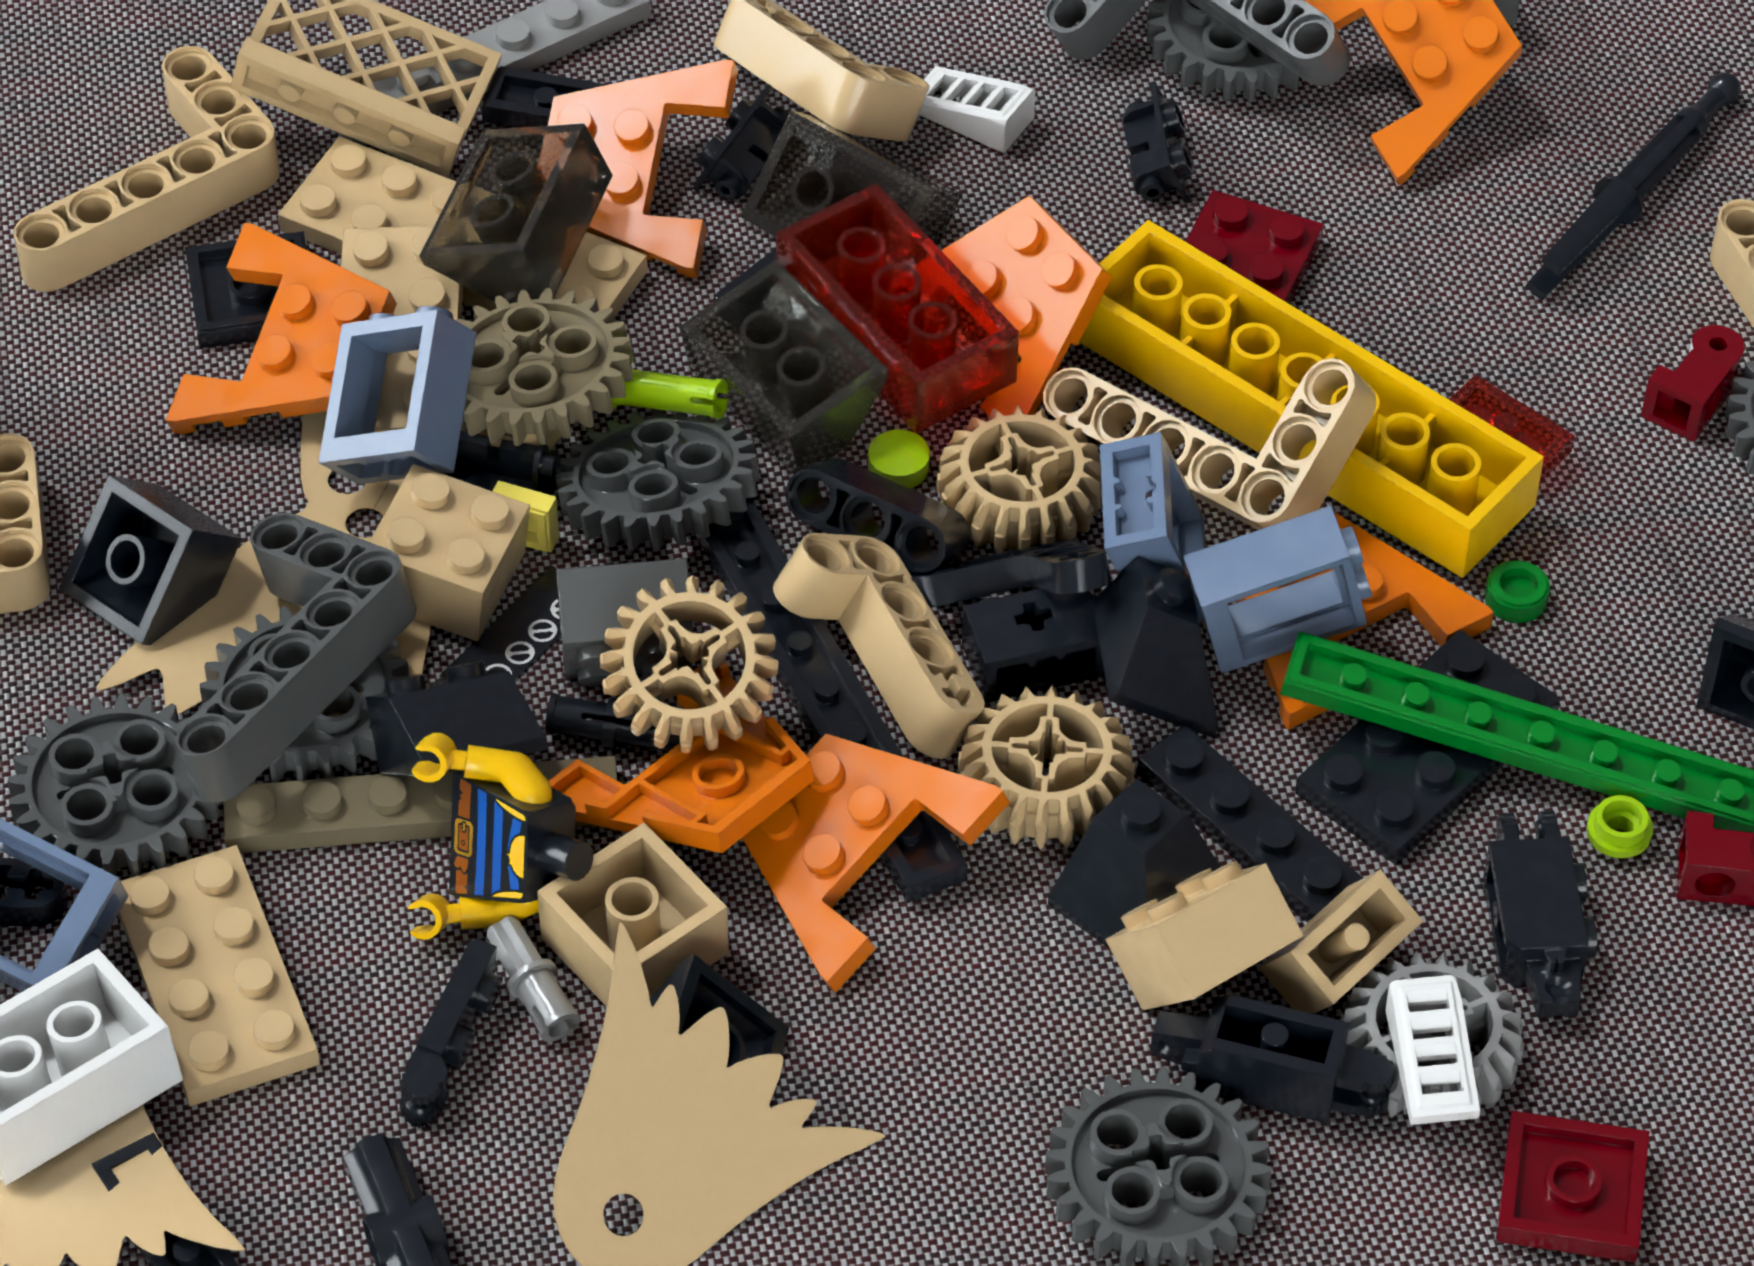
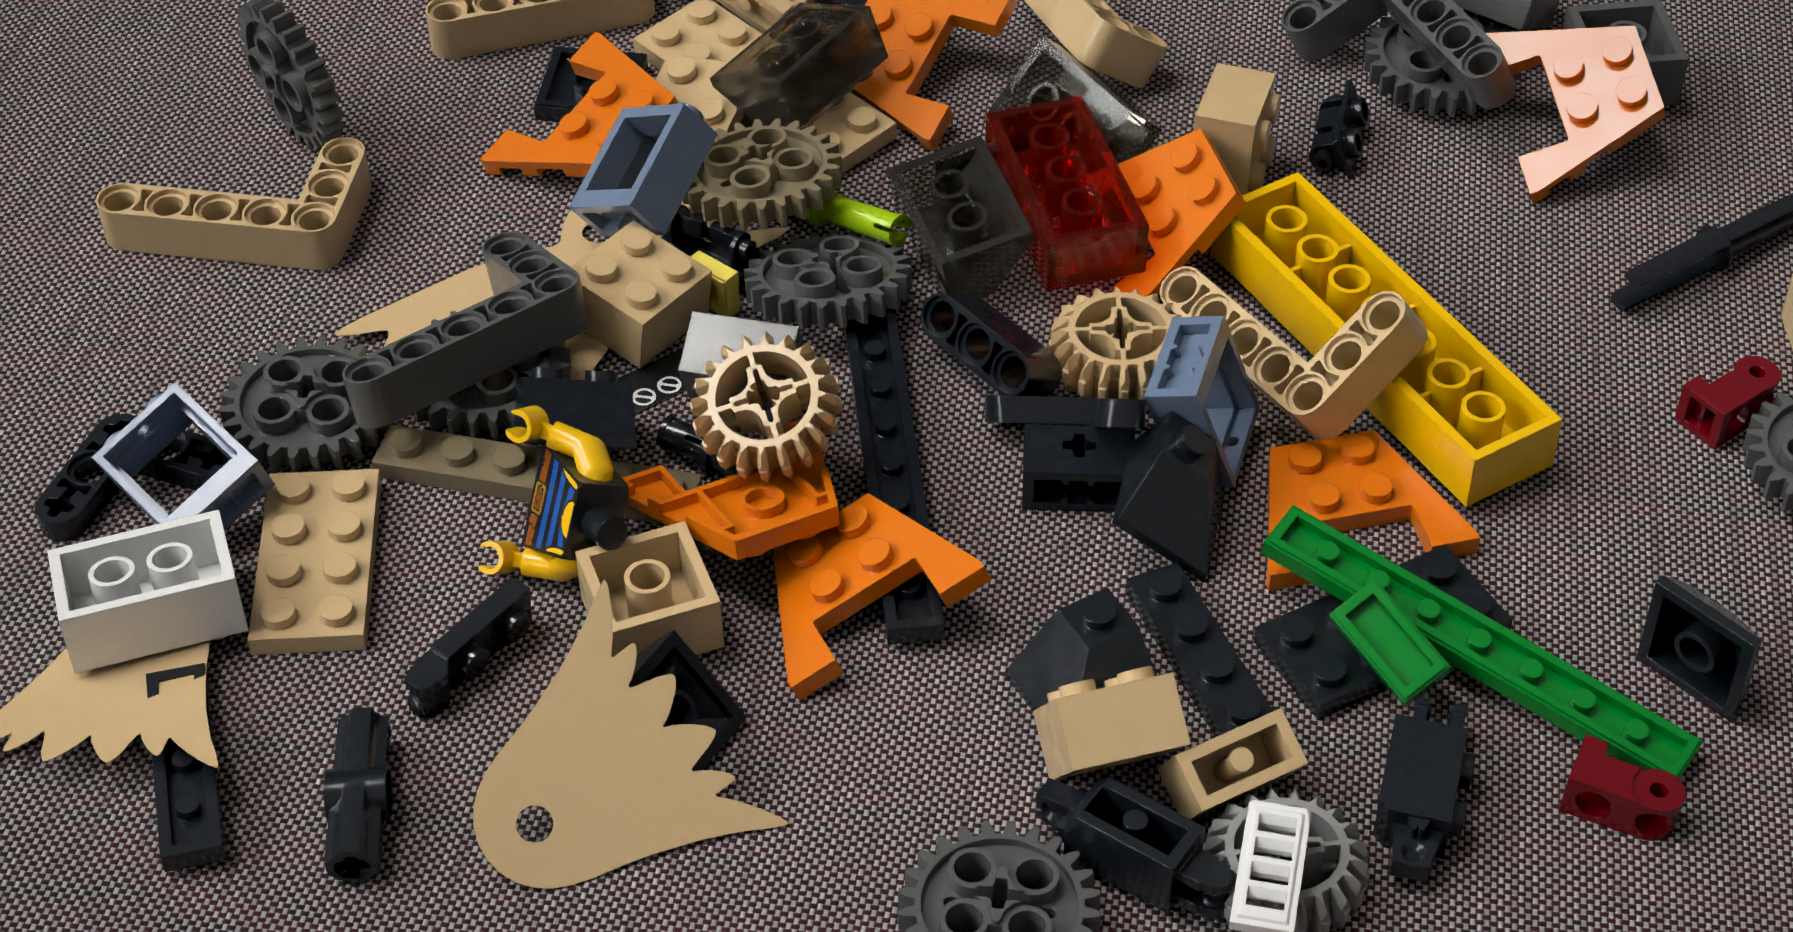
camera: 20 degrees right, 5 degrees down
(147, 559) = (414, 248): black slope -> none
(533, 980) = (555, 620): light grey axle -> none
(728, 160) = (993, 69): black hinge -> none
(891, 631) = (962, 430): tan beam -> none
(900, 457) = (1032, 310): lime tile -> none
(1002, 110) = (1177, 68): white slope -> none
(1054, 166) = (1238, 120): none -> tan brick
(1086, 764) = (1044, 561): tan gear -> none
(1257, 241) = (1394, 218): dark red plate -> none
(1269, 559) = (1285, 434): sand blue window -> none
(1453, 761) = (1390, 642): none -> green tile
(1516, 421) = (1578, 415): clear red plate -> none
(1517, 591) = (1510, 528): green tile -> none
(1623, 814) = (1526, 736): lime plate -> none

